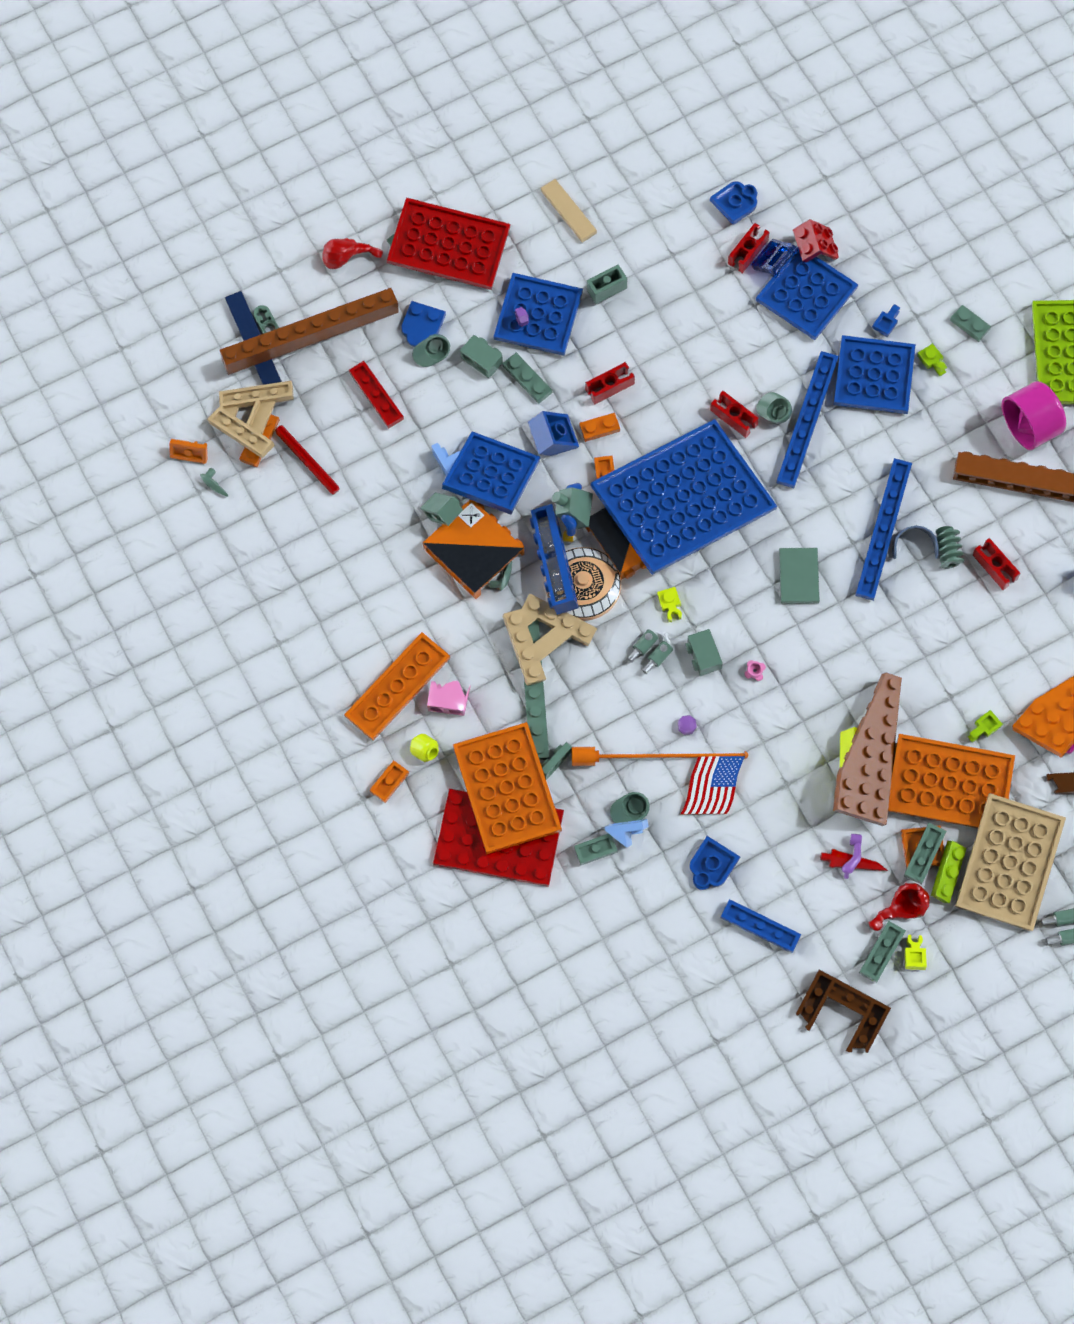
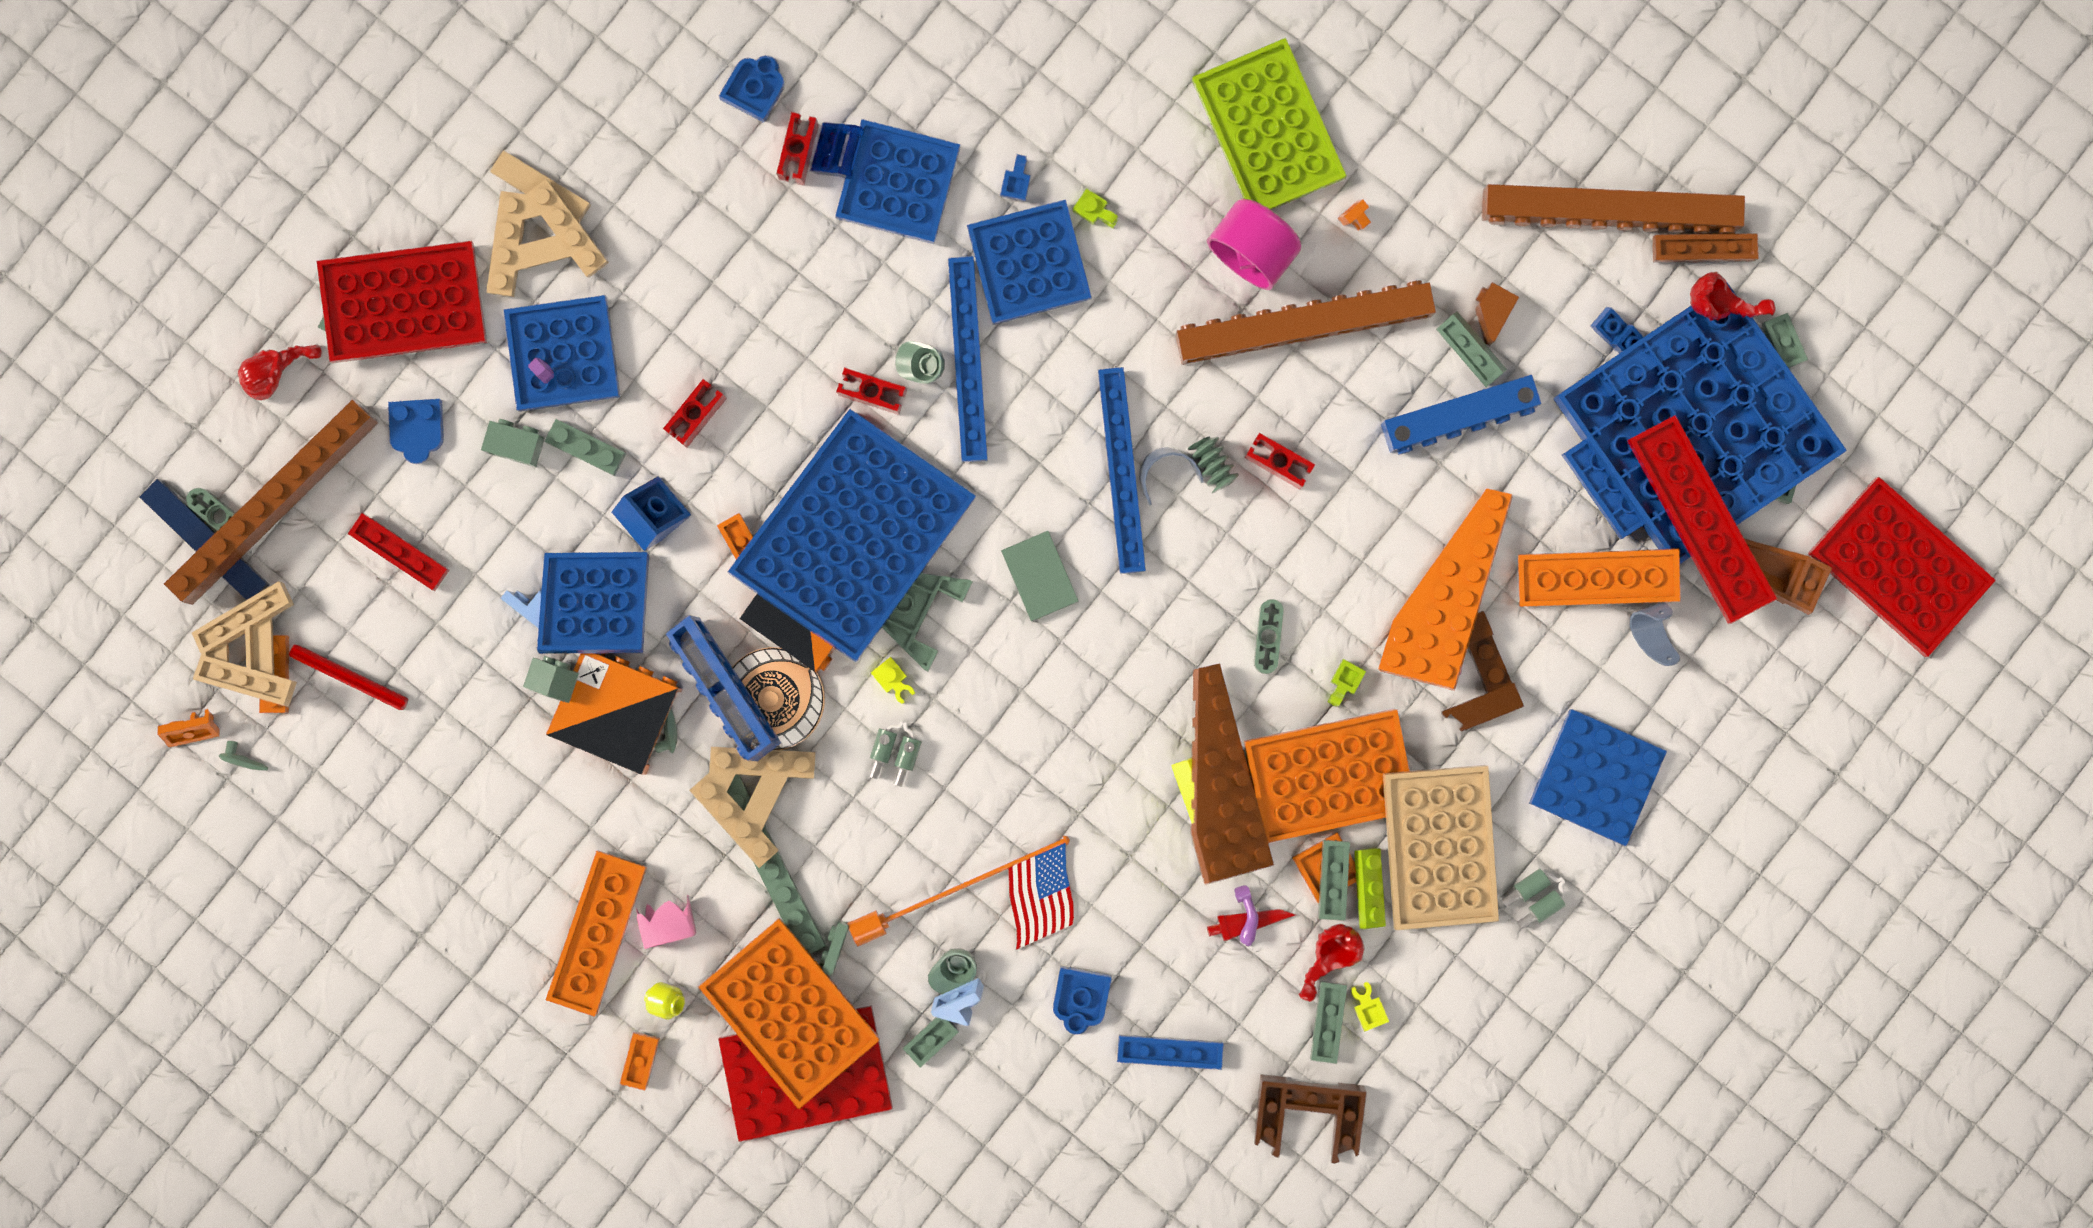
camera: 25 degrees left, 15 degrees up
(431, 350) = (444, 462): sand green cap -> none
(532, 238) = (511, 255): none -> tan plate
(573, 509) = (718, 611): sand green torso -> none
(599, 427) = (706, 477): orange plate -> none
(606, 284) = (634, 277): sand green brick -> none
(687, 725) = (978, 831): medium lavender tile -> none
(702, 562) = (913, 608): none -> sand green wing
(704, 652) = (961, 729): sand green brick -> none
(755, 665) = (1027, 722): bright pink plate -> none
(814, 240) = (881, 105): red bracket -> none
(944, 662) = (1264, 617): none -> sand green beam
(970, 323) = (1123, 138): sand green plate -> none

